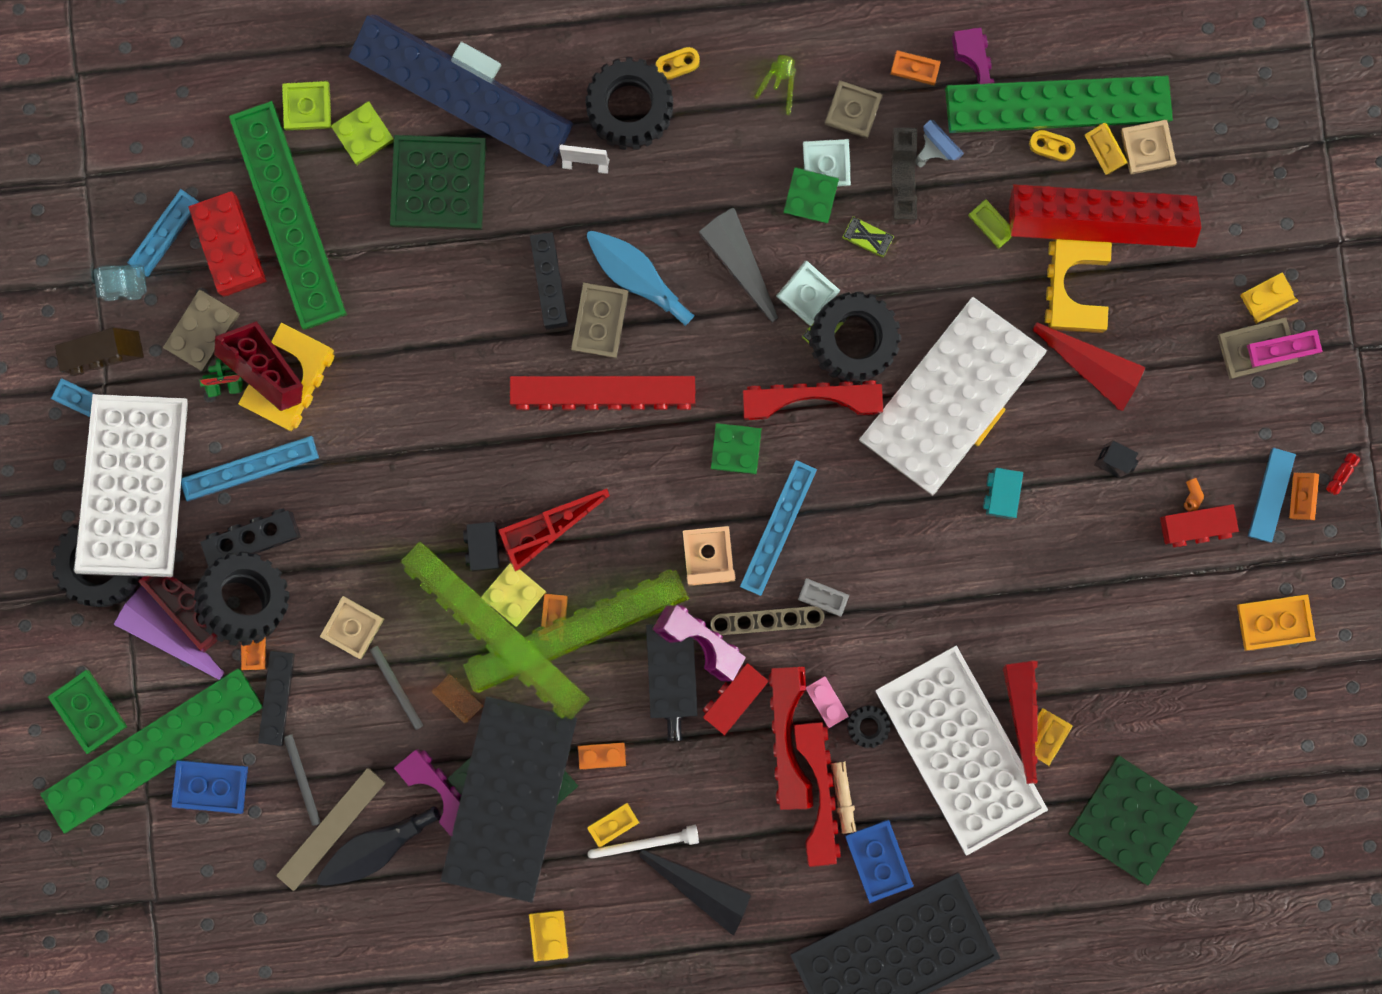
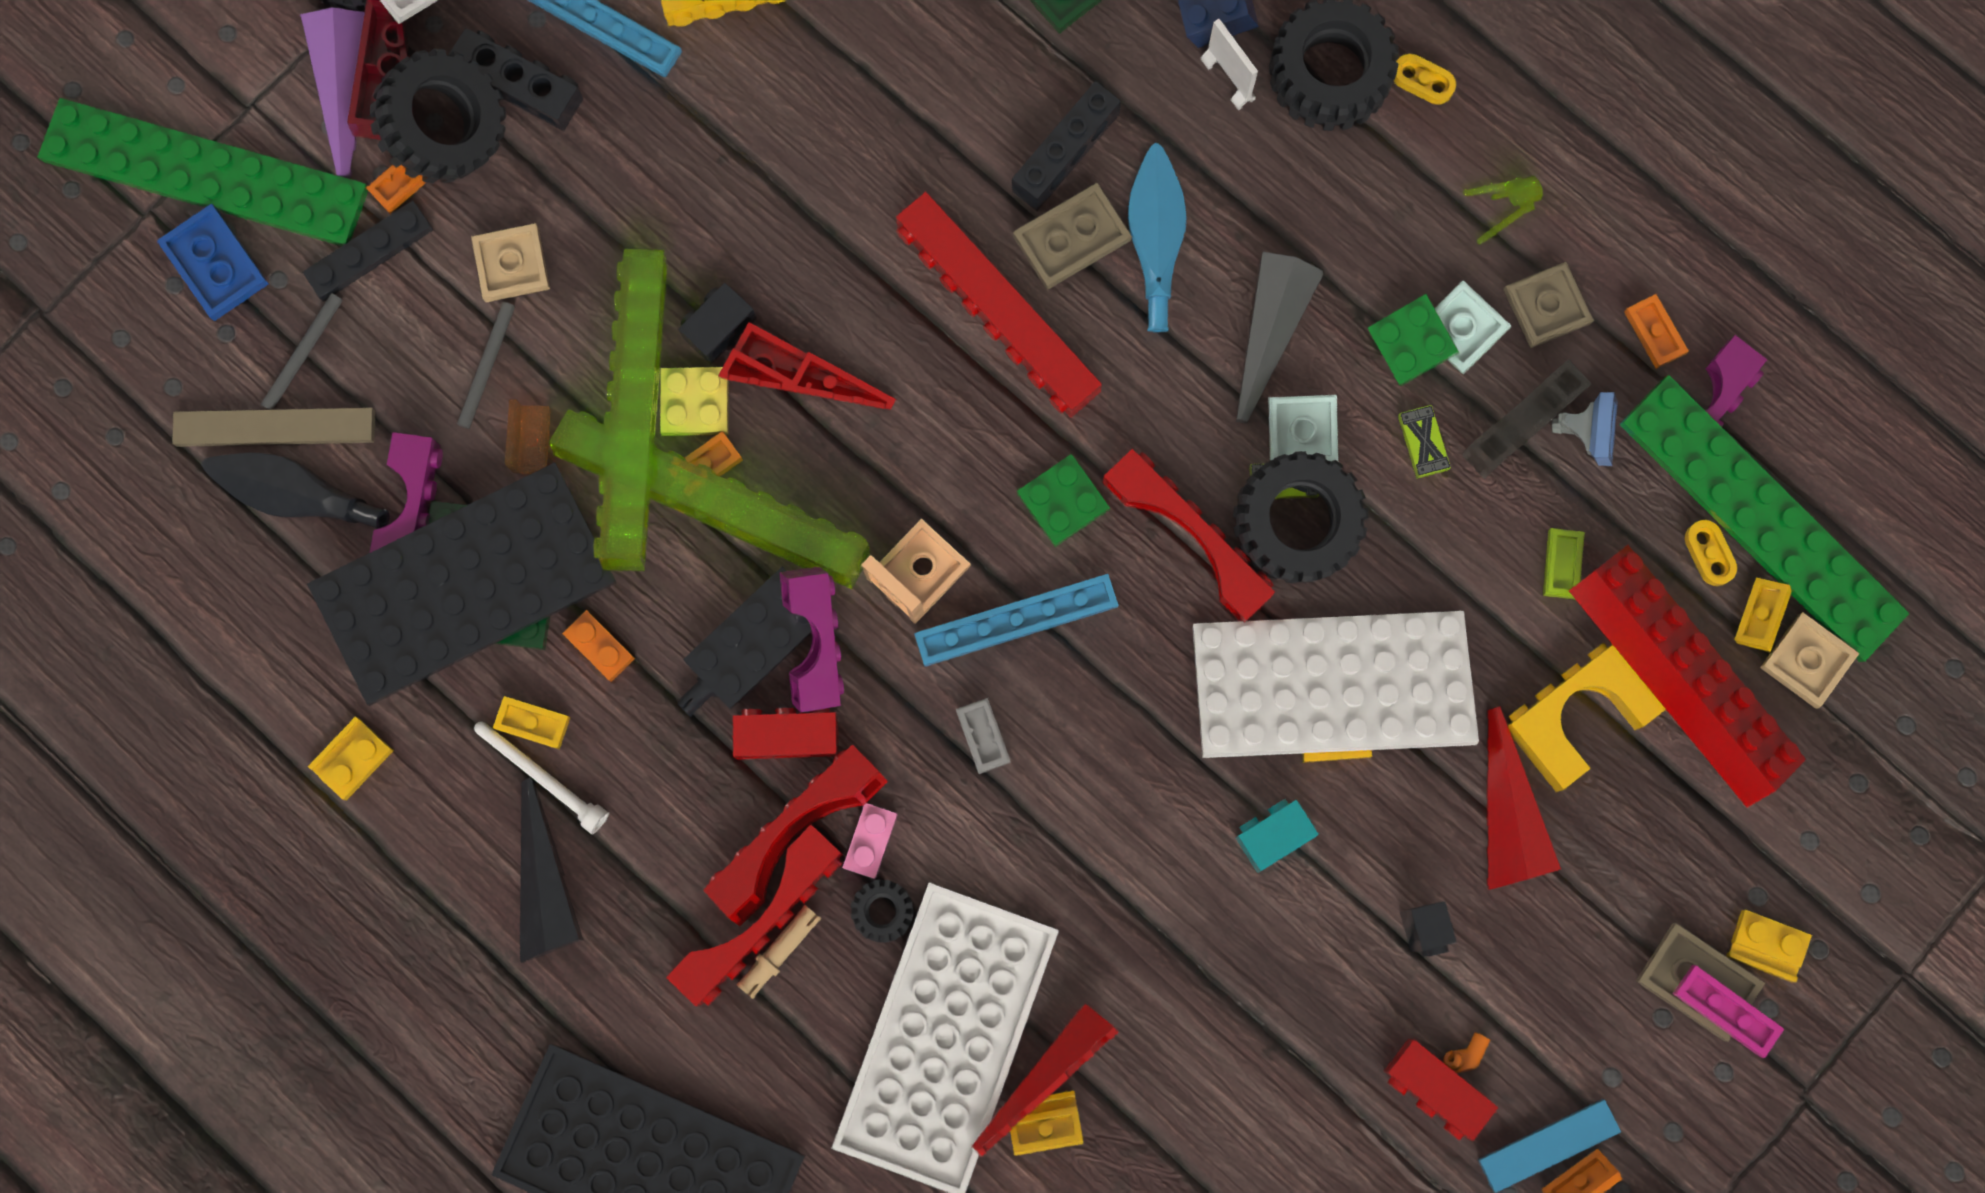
camera: 50 degrees right, 5 degrees down
(87, 711) = (188, 71): green plate -> none
(778, 617) = (894, 680): dark tan beam -> none
(879, 861) = (741, 1053): blue plate -> none

